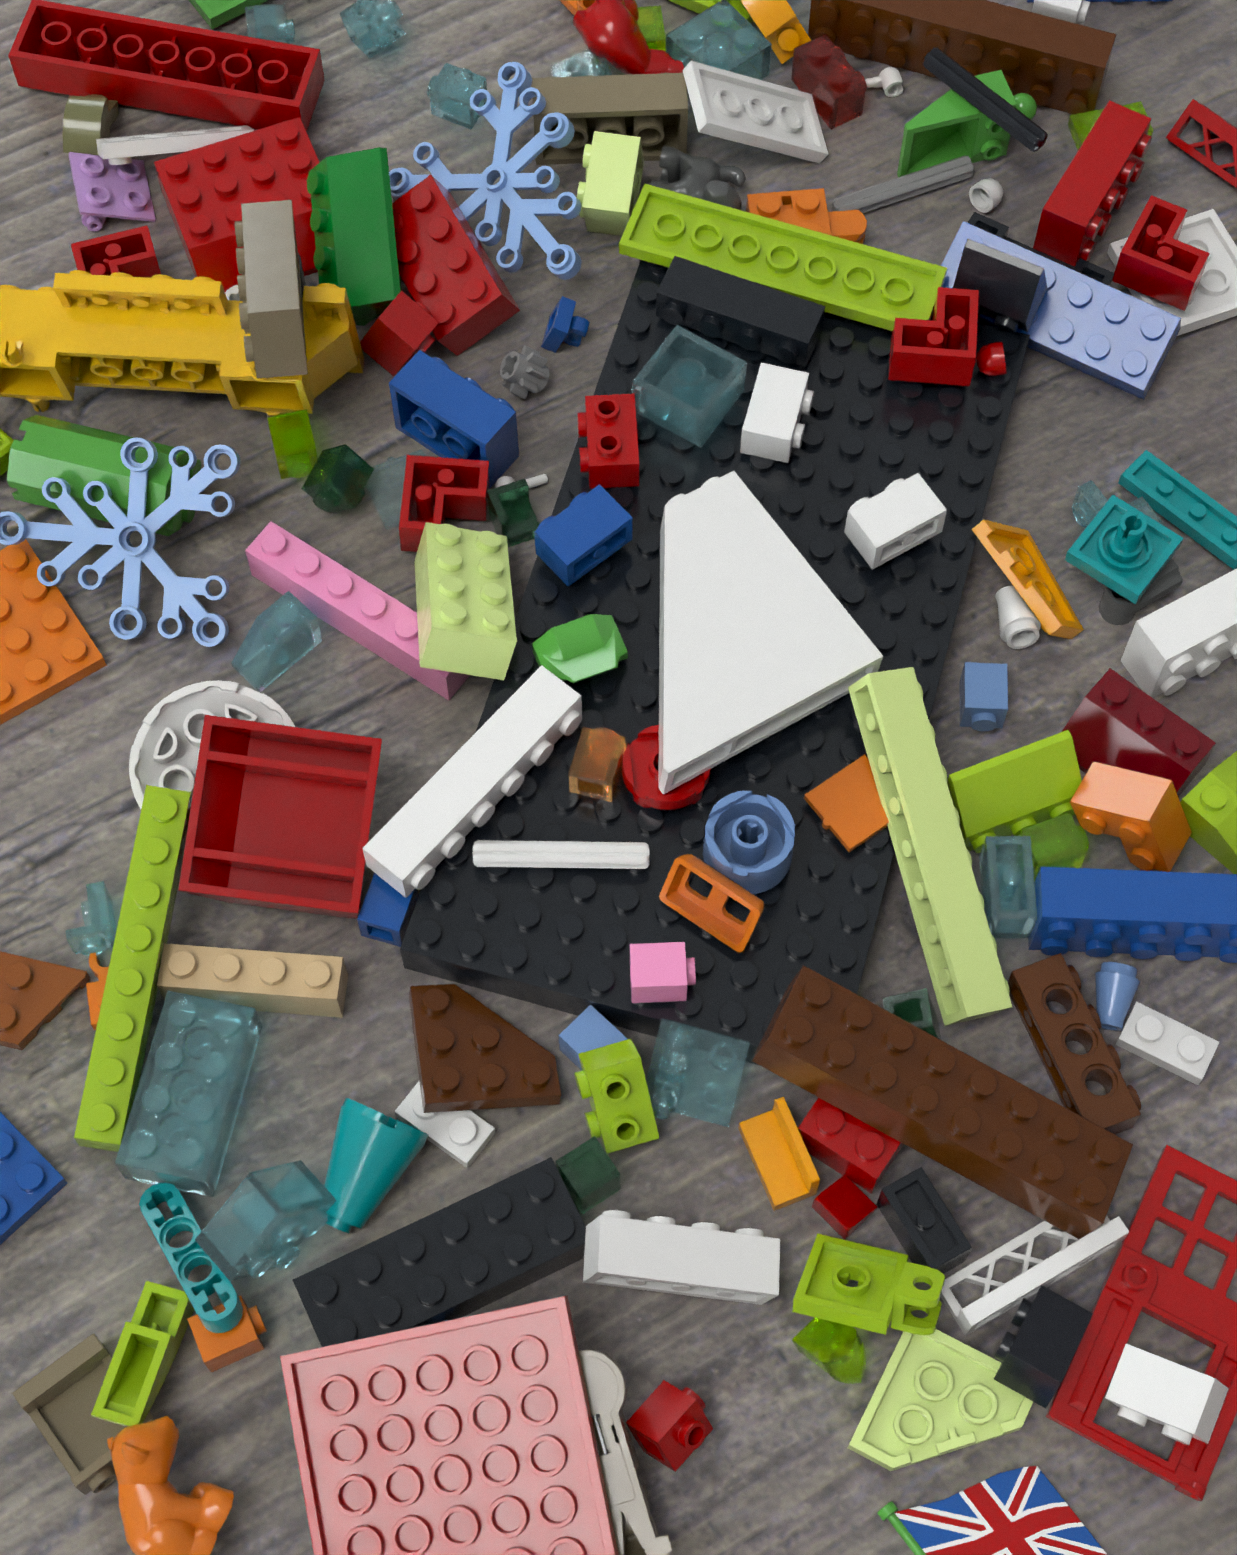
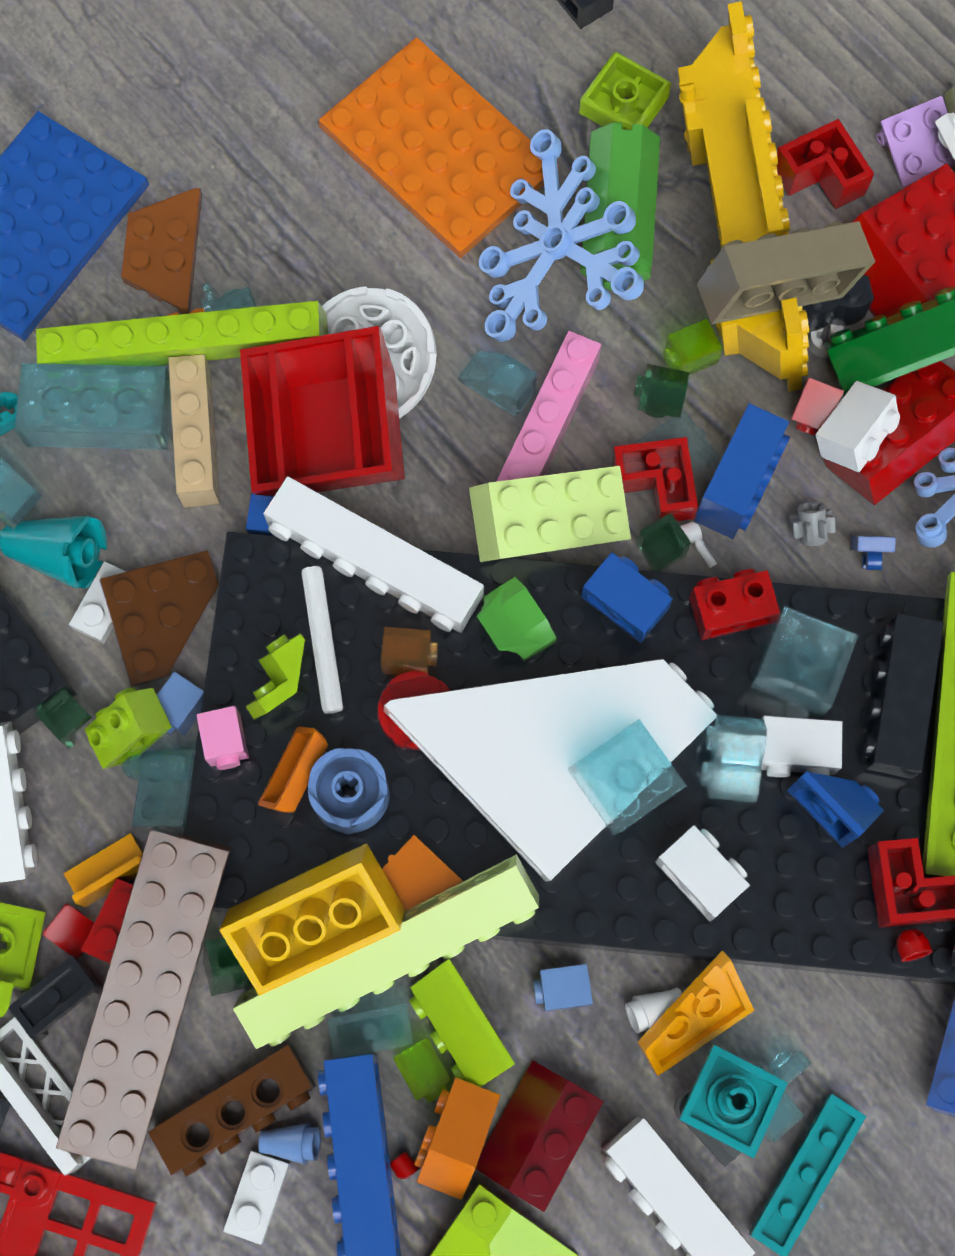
camera: 80 degrees right, 10 degrees up
(442, 288) = (858, 426): none -> white brick
(592, 897) = (283, 668): none -> lime slope
(781, 465) = (735, 758): none -> clear light blue brick
(791, 554) = (626, 777): none -> clear light blue brick
(849, 388) = (837, 804): none -> blue slope
(887, 901) = (313, 919): none -> yellow brick

